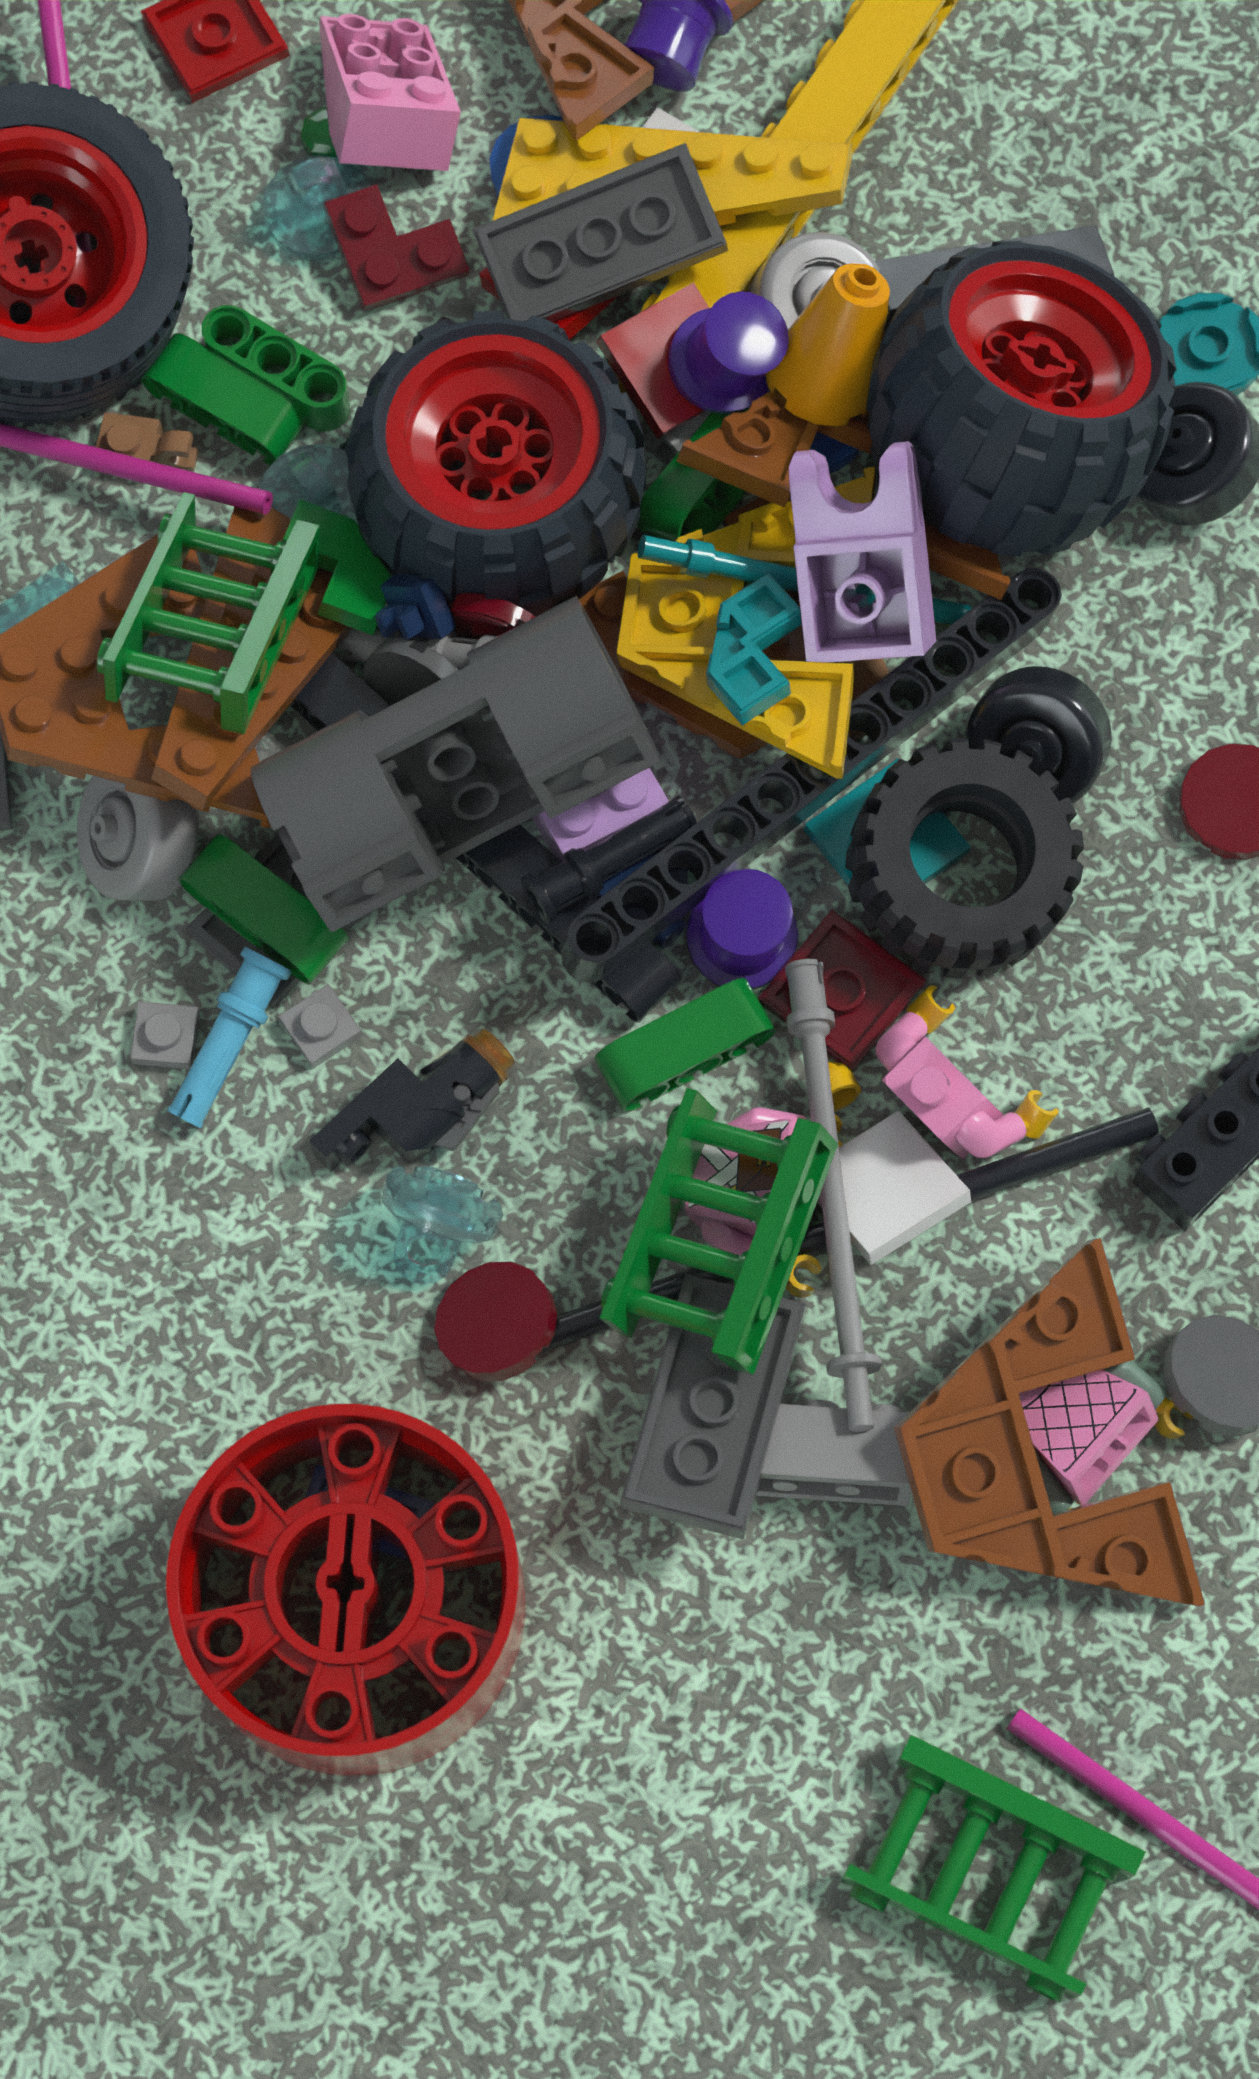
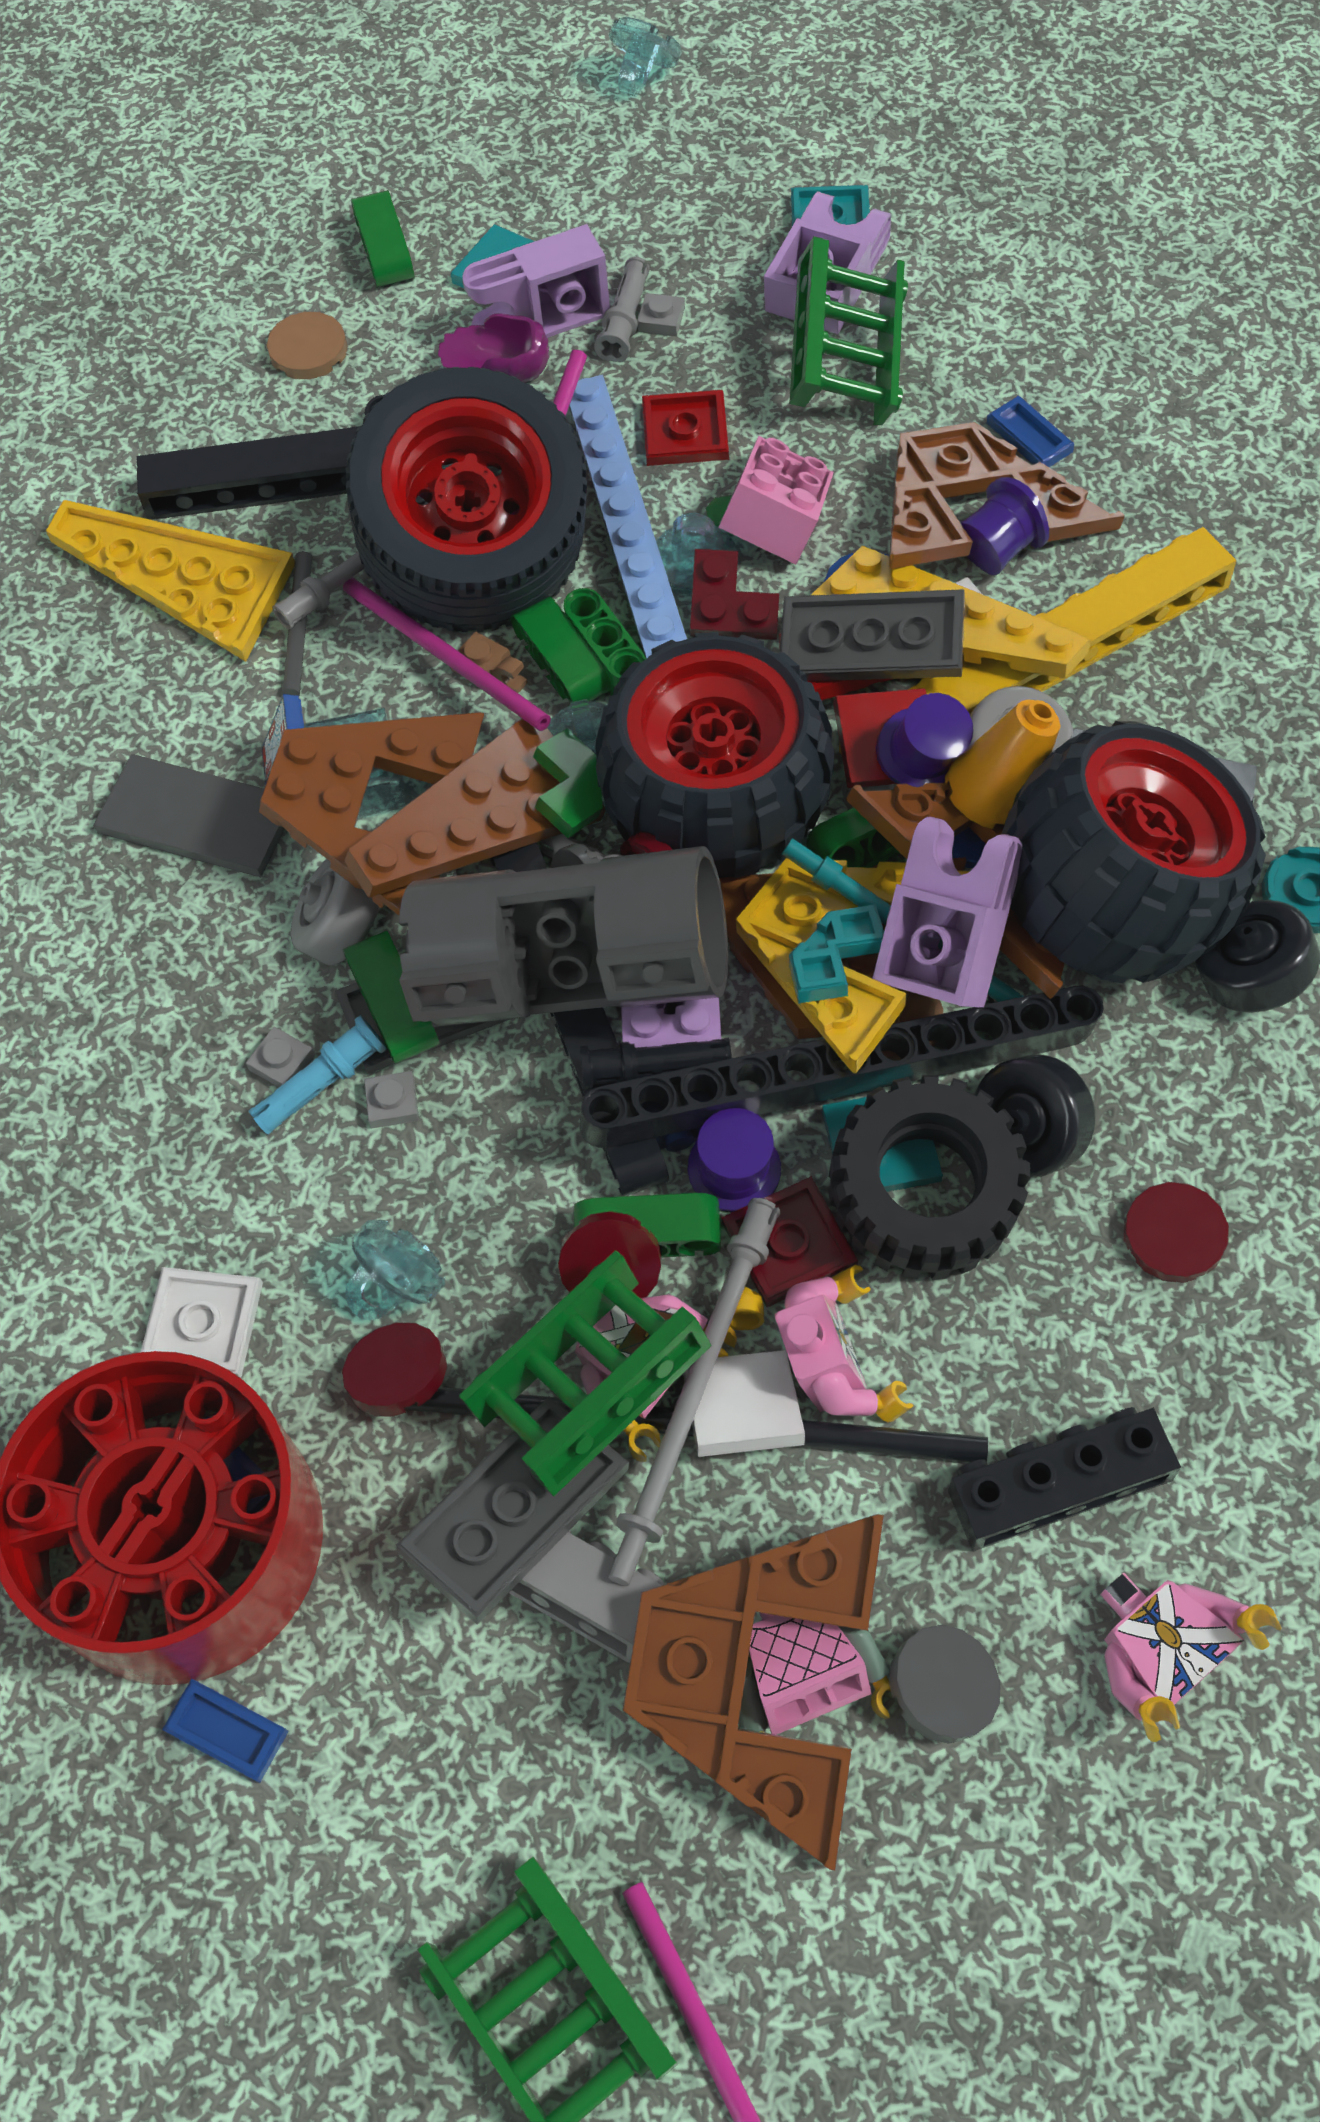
camera: 30 degrees right, 10 degrees down
(229, 206) = (625, 516): none -> light blue plate
(245, 1368) = (204, 1316): none -> white tile
(253, 645) = (464, 802): green fence -> none
(414, 608) = (603, 830): dark blue tile -> none
(417, 1112) = (422, 1189): black plate -> none
(520, 1771) = (225, 1730): none -> blue tile
(657, 1085) = (598, 1238): none -> dark red tile

